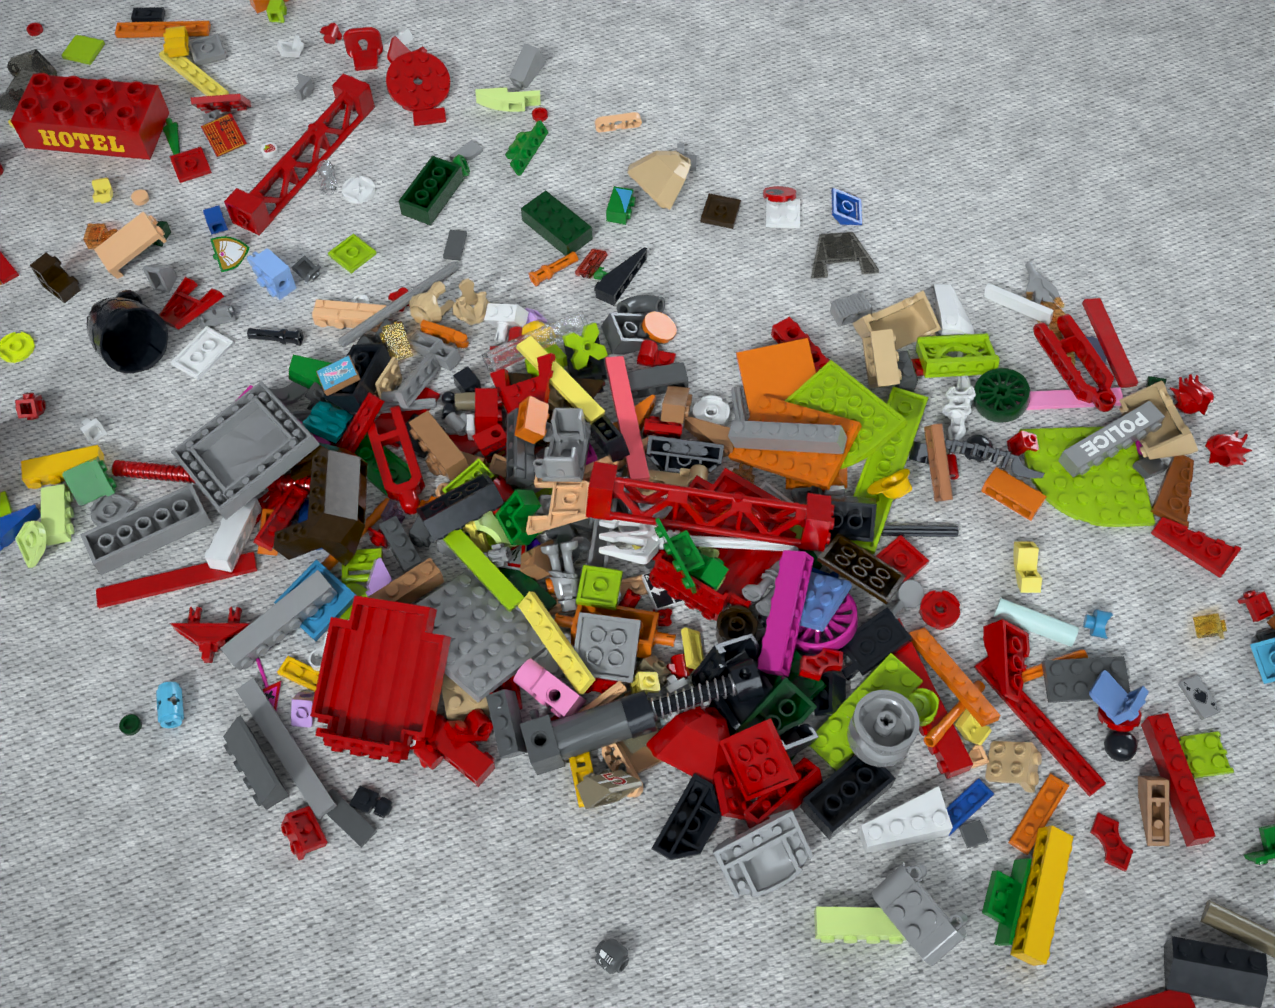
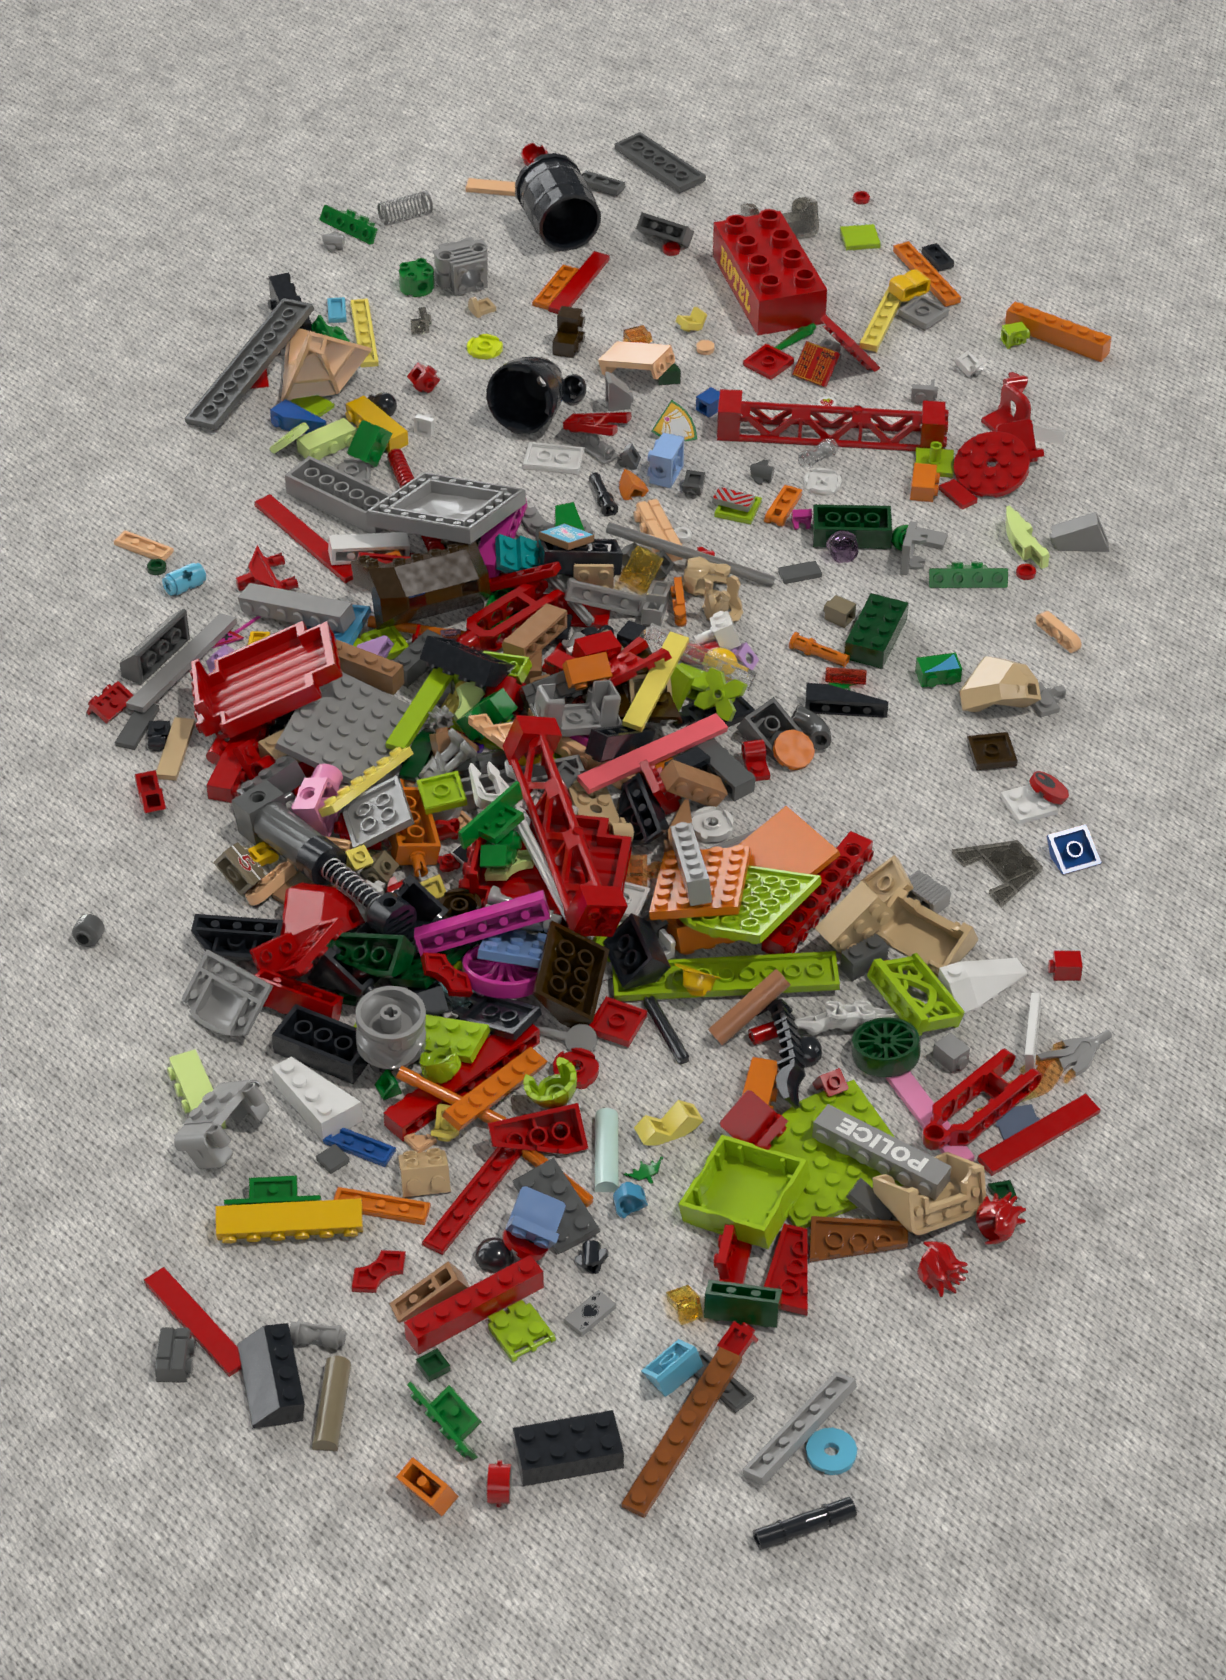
camera: 65 degrees right, 15 degrees down
(38, 448) = (385, 402): none -> black piece
(91, 727) = (143, 546): none -> light nougat tile
(243, 299) = (629, 457): none -> dark grey tile
(278, 312) = (631, 485): none -> orange brick
(323, 221) = (762, 472): none -> dark grey piece
(346, 251) = (733, 499): none -> light grey tile
(372, 223) = (783, 505): none -> orange plate
(384, 115) = (935, 455): none -> lime tile
(394, 220) = (801, 516): none -> dark pink tile
(398, 793) = (175, 748): none -> tan tile
(406, 129) = (924, 482): none -> orange brick
(451, 205) = (842, 546): none -> clear purple hair
(458, 837) = (149, 791): none -> red brick
(487, 173) = (912, 537): none -> light grey piece
(519, 237) = (839, 611): none -> dark tan brick
(648, 399) = (694, 757): none -> black tile
(835, 327) = (887, 879): none -> tan tile
(909, 762) = (387, 1085): none -> green slope
(959, 258) = (1066, 966): none -> red brick
(970, 630) = (555, 1089): none -> lime hair
(1018, 358) = (951, 1053): none -> light grey brick
(1061, 507) = (753, 1121): none -> red bracket
(1063, 602) = (646, 1171): none -> green piece
(1122, 541) = (746, 1190): none -> lime tile
(1145, 674) = (592, 1256): none -> black piece
(1170, 926) = (307, 1333): none -> light grey piece
(1176, 576) = (732, 1256): none -> red bracket
(1228, 834) = (433, 1365): none -> dark green plate
(1229, 586) = (742, 1303): none -> dark green brick

